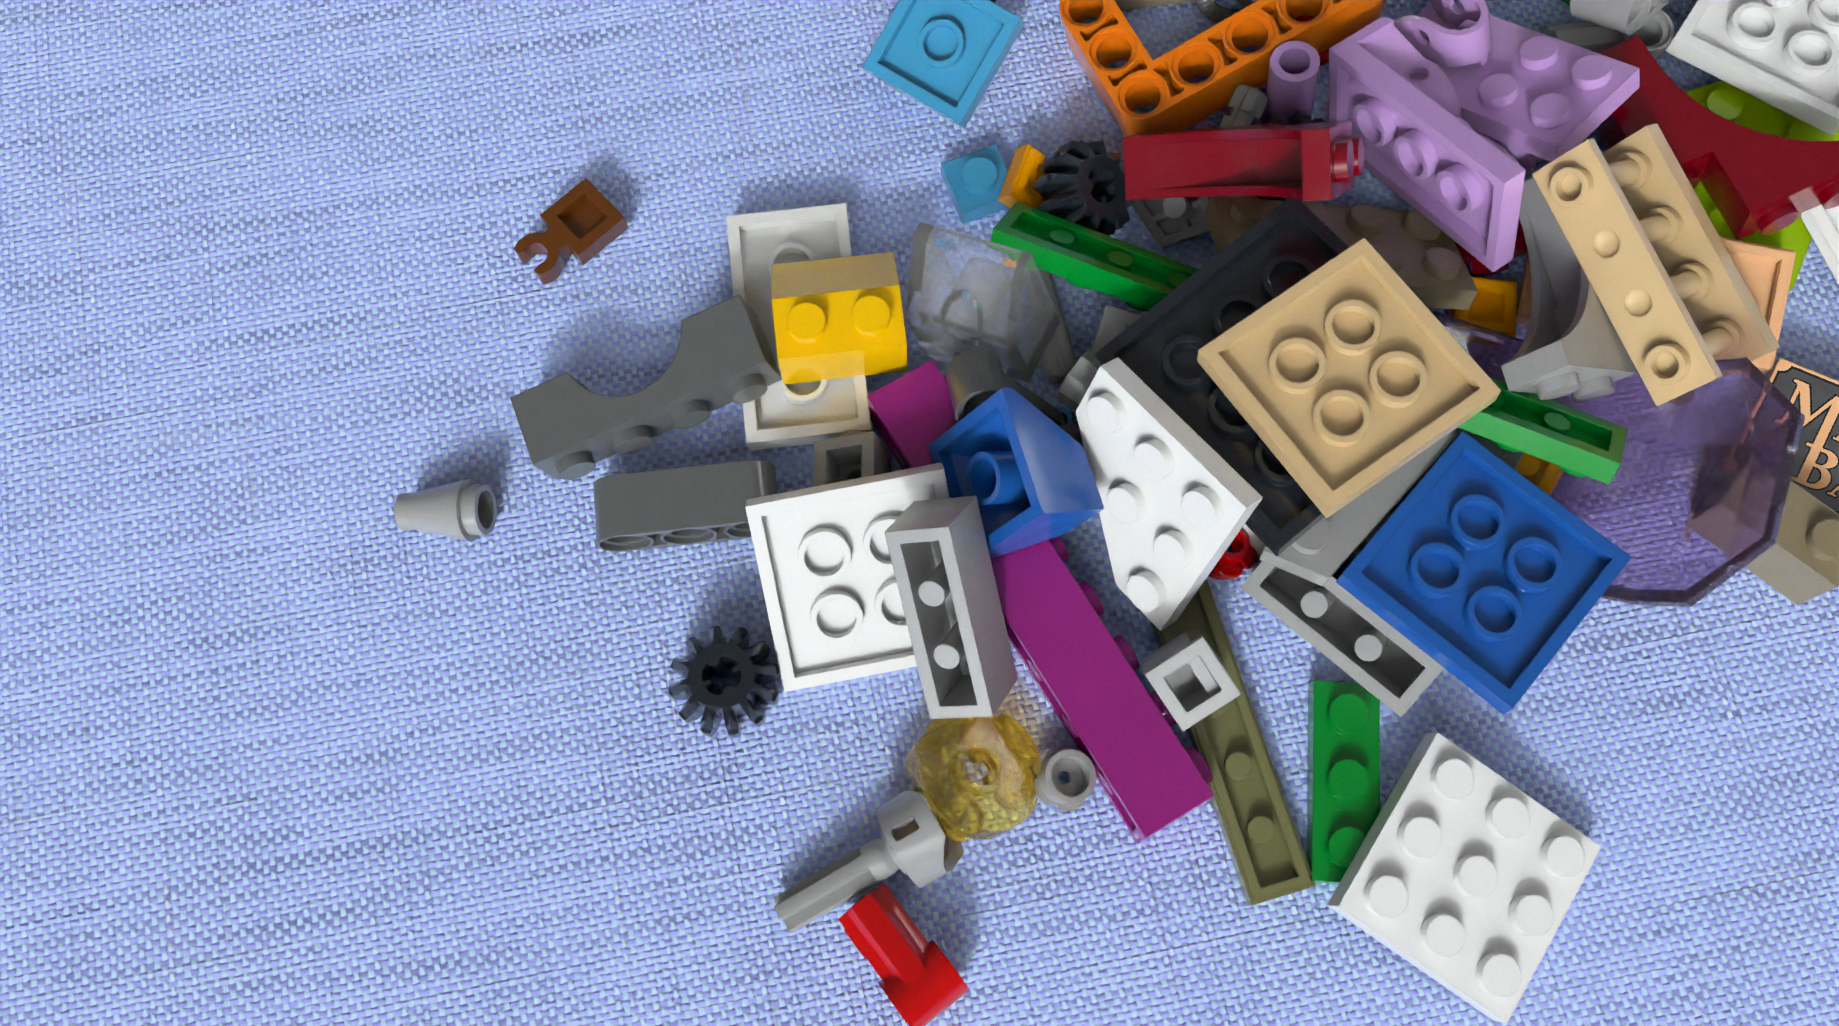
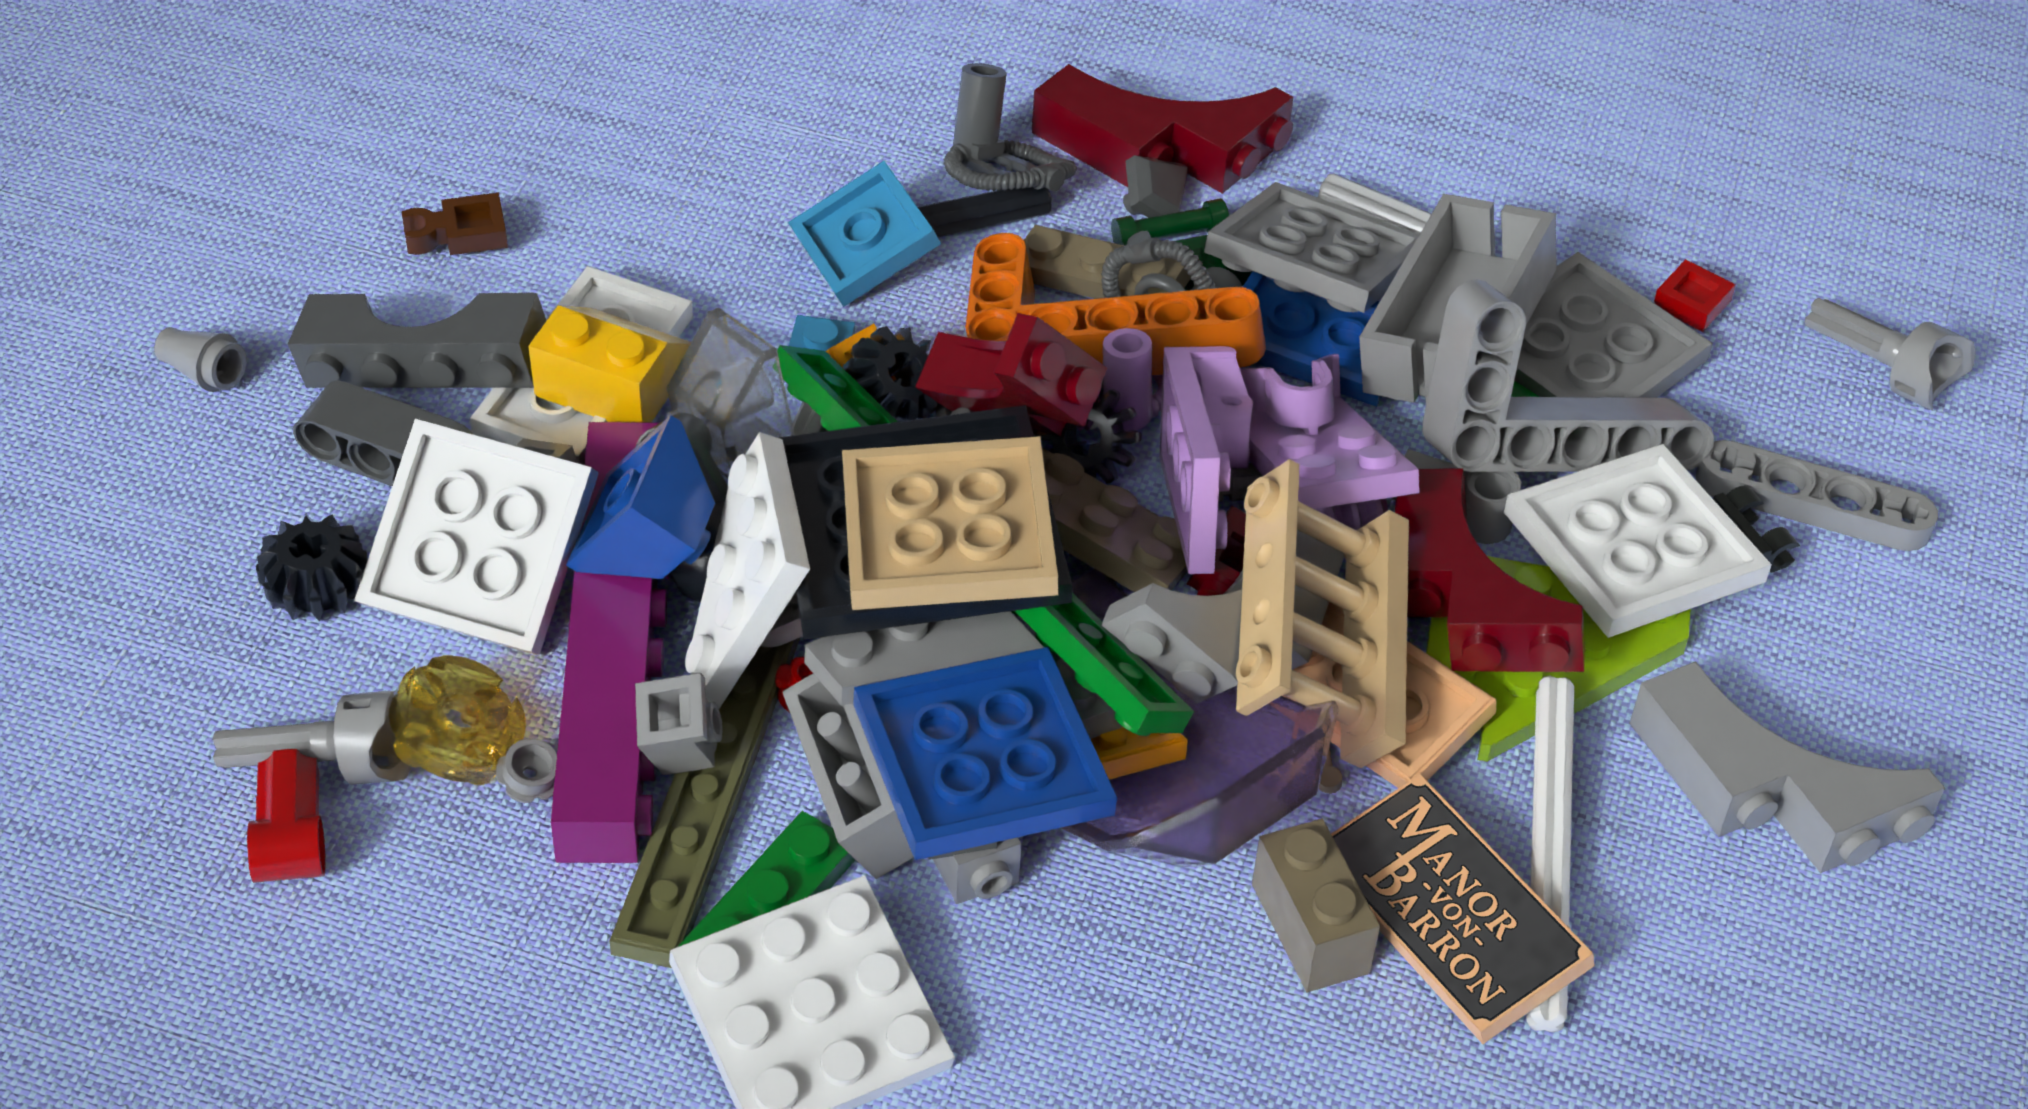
camera: 25 degrees right, 25 degrees down
(952, 607) = (521, 568): light grey brick -> none

